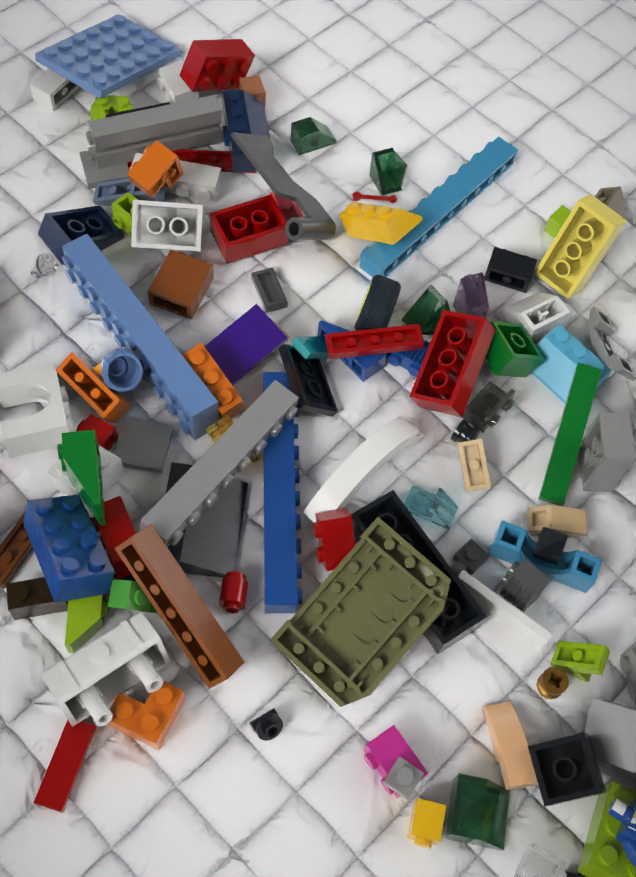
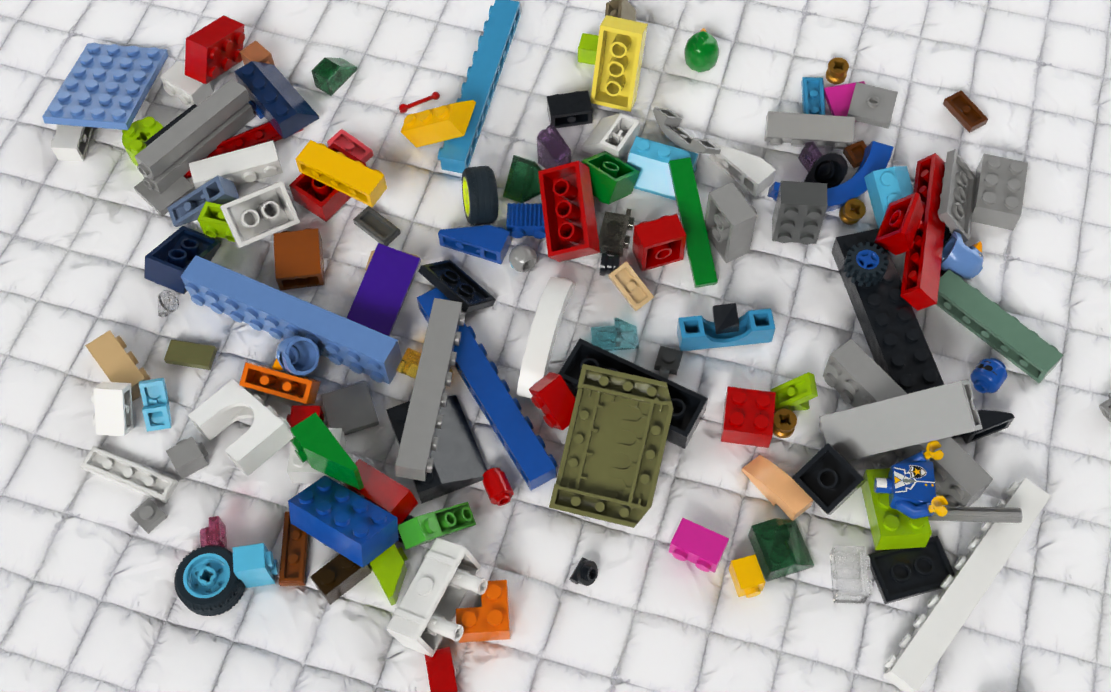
camera: 20 degrees left, 0 degrees up
(36, 321) = (190, 354): none -> olive tile
(155, 168) = (221, 170): orange brick -> none
(180, 606) = (465, 516): dark orange brick -> none
(214, 379) = (382, 323): orange brick -> none
(261, 224) = (341, 173): none -> yellow brick
(310, 347) = (445, 256): teal tile -> none
(317, 222) = (386, 148): dark grey door -> none
(374, 341) = (494, 225): red plate -> none
(385, 385) = (522, 258): none -> light grey piece
(387, 171) = (418, 74): clear green slope -> none
(403, 778) = (712, 551): light grey plate -> none
(505, 611) = (710, 386): white tile -> none
(519, 657) = (748, 417): none -> red brick
(523, 584) = (721, 359): dark grey brick -> none
(525, 436) = (658, 242): none -> red brick
(558, 518) = (718, 294): tan slope -> none

